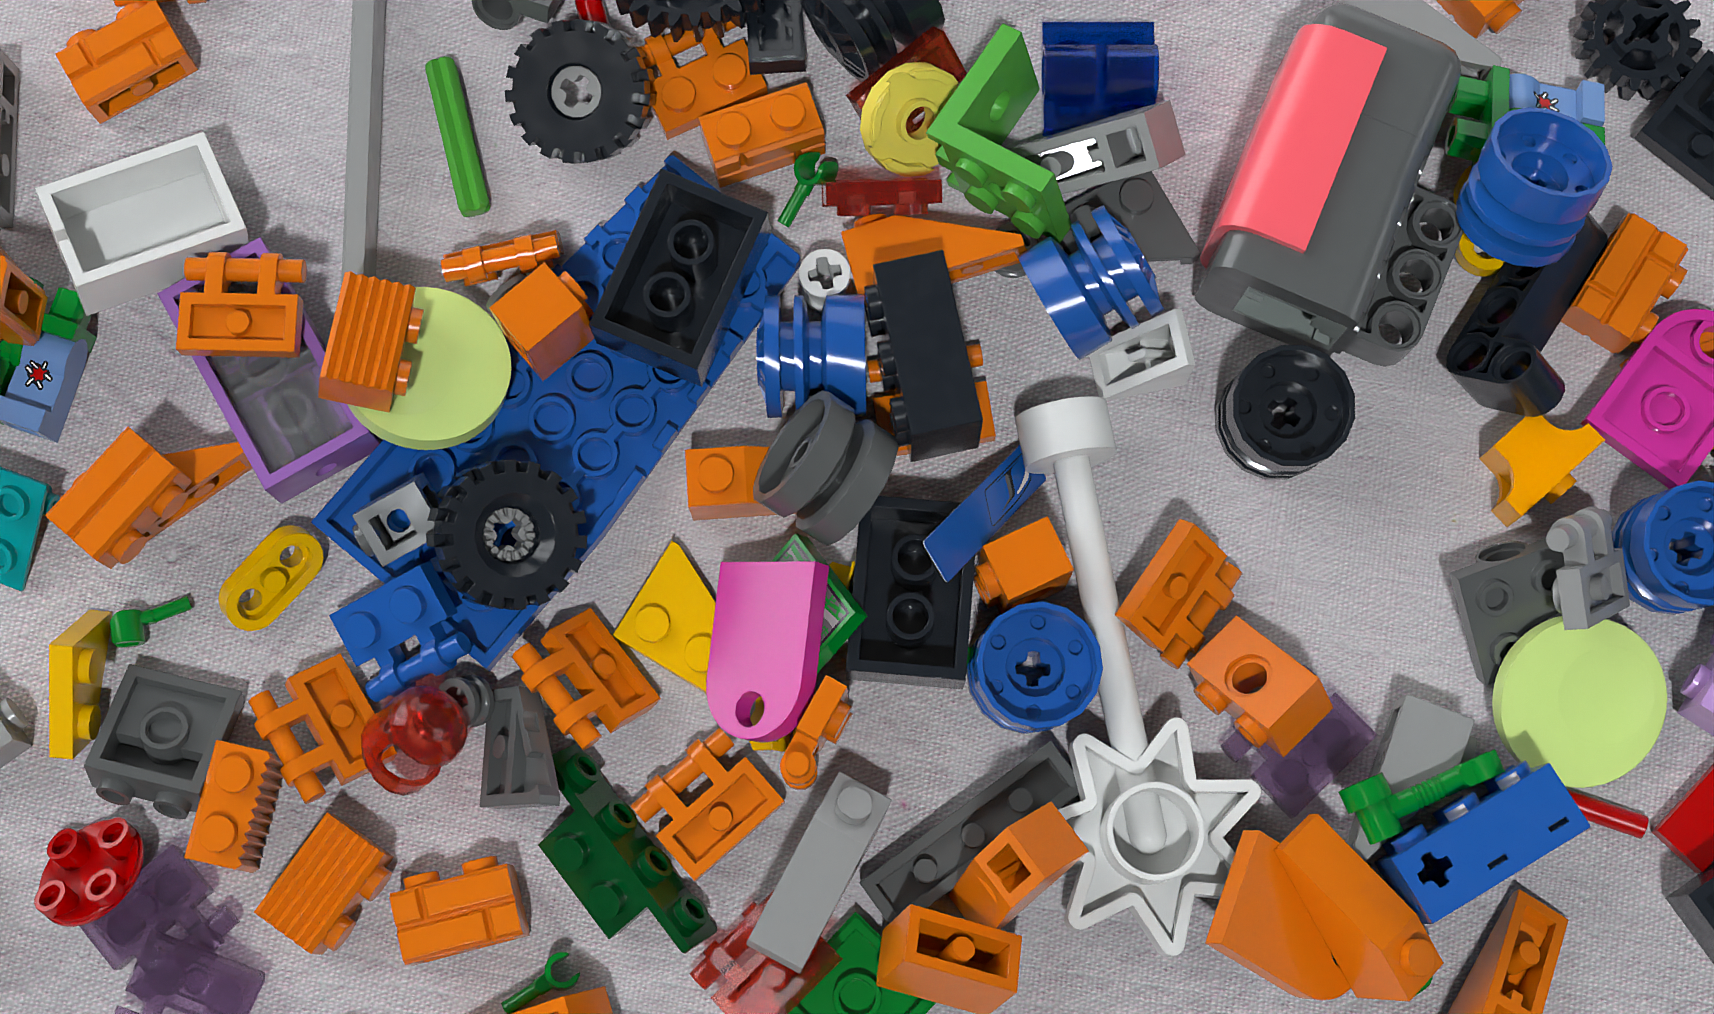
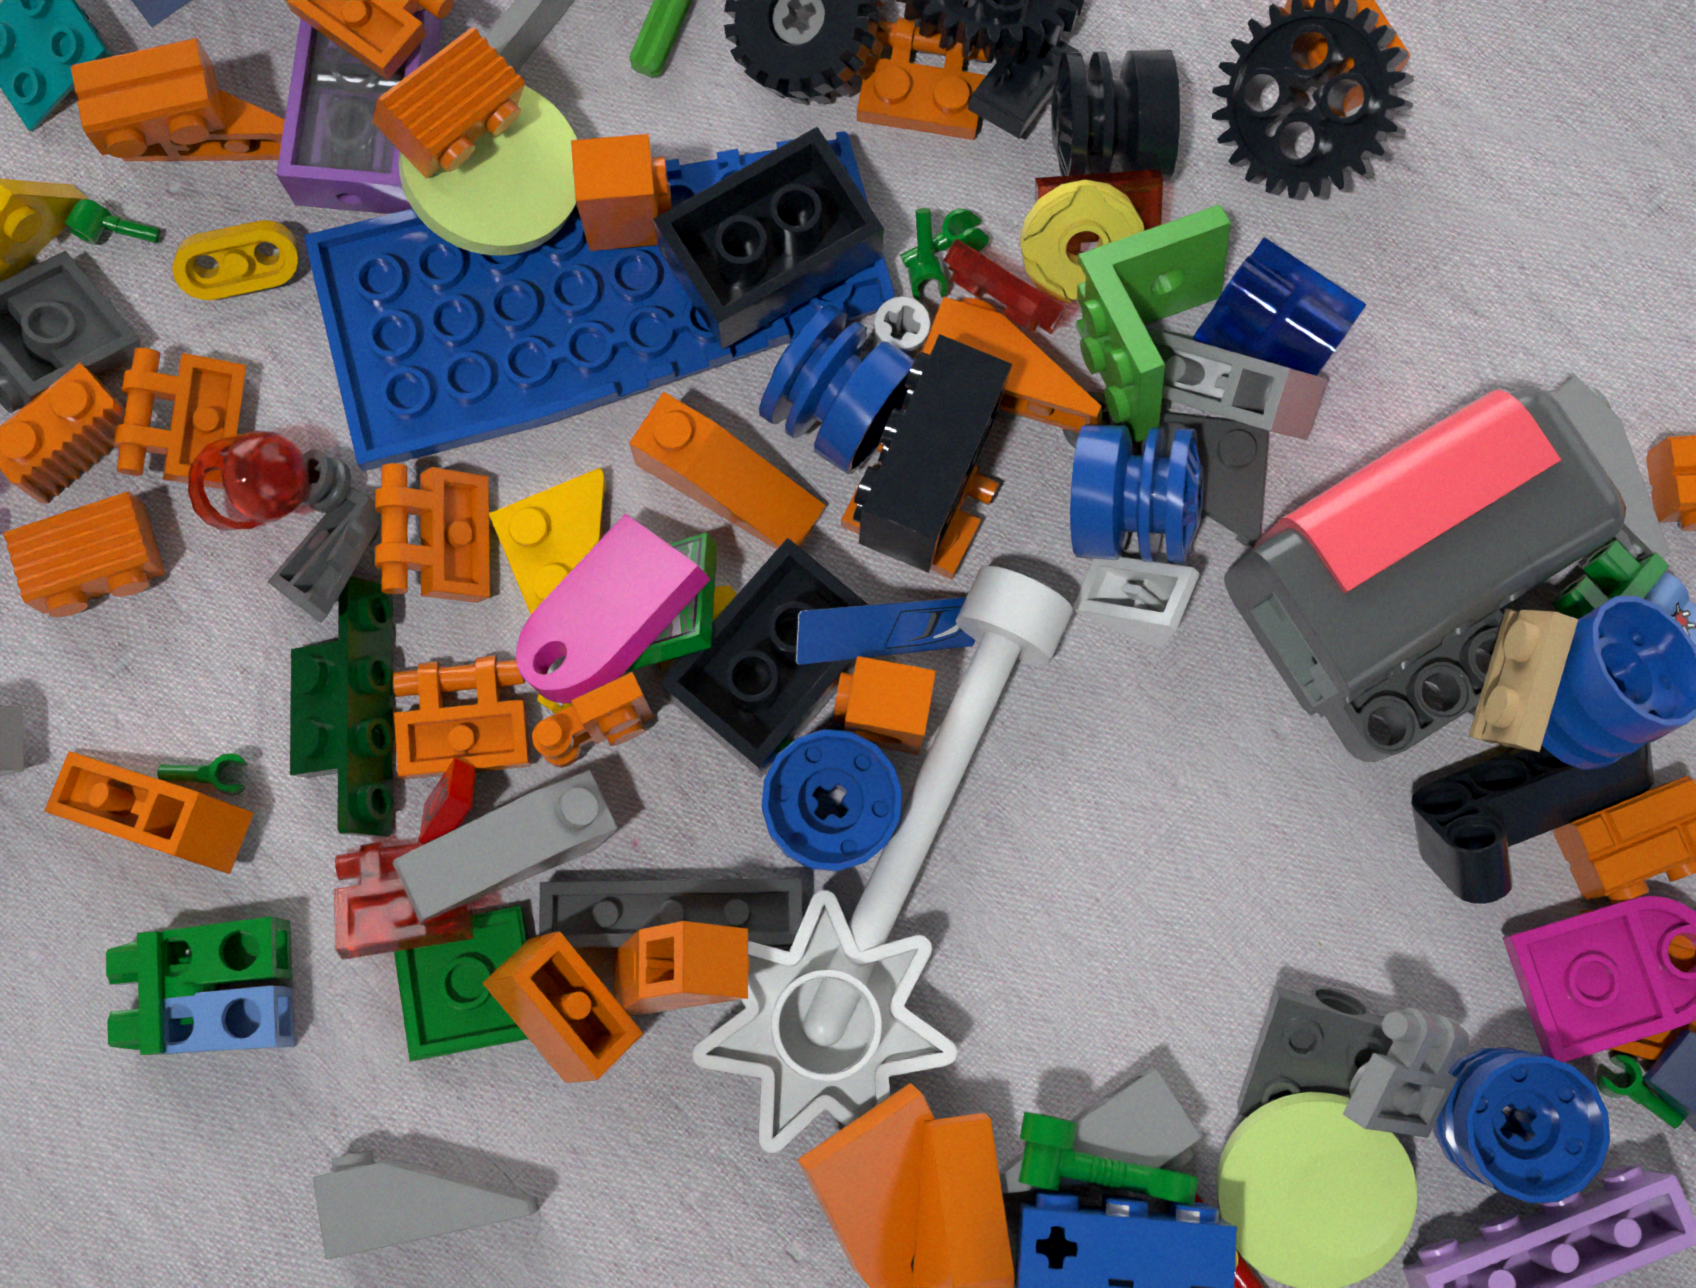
camera: 30 degrees right, 0 degrees up
(376, 530) = (398, 283): brick -> none
(394, 614) = (315, 362): blue plate -> none
(459, 912) = (178, 659): orange brick -> none
(481, 263) = (612, 113): orange plate -> none
(543, 531) = (488, 377): black bush -> none
(748, 873) = (448, 801): none -> red tile
(762, 134) = (937, 166): orange brick -> none
(804, 215) = (926, 264): none -> green hand
(825, 468) = (769, 490): dark grey wheel -> none
(1180, 593) = (1011, 817): orange plate -> none
(1245, 659) = (1030, 998): orange brick -> none
(1312, 763) = (1029, 1061): clear purple plate -> none
(1316, 405) = (1266, 723): black wheel -> none
(1471, 226) = (1523, 678): none -> tan plate
(1536, 463) = (1434, 943): light orange brick -> none

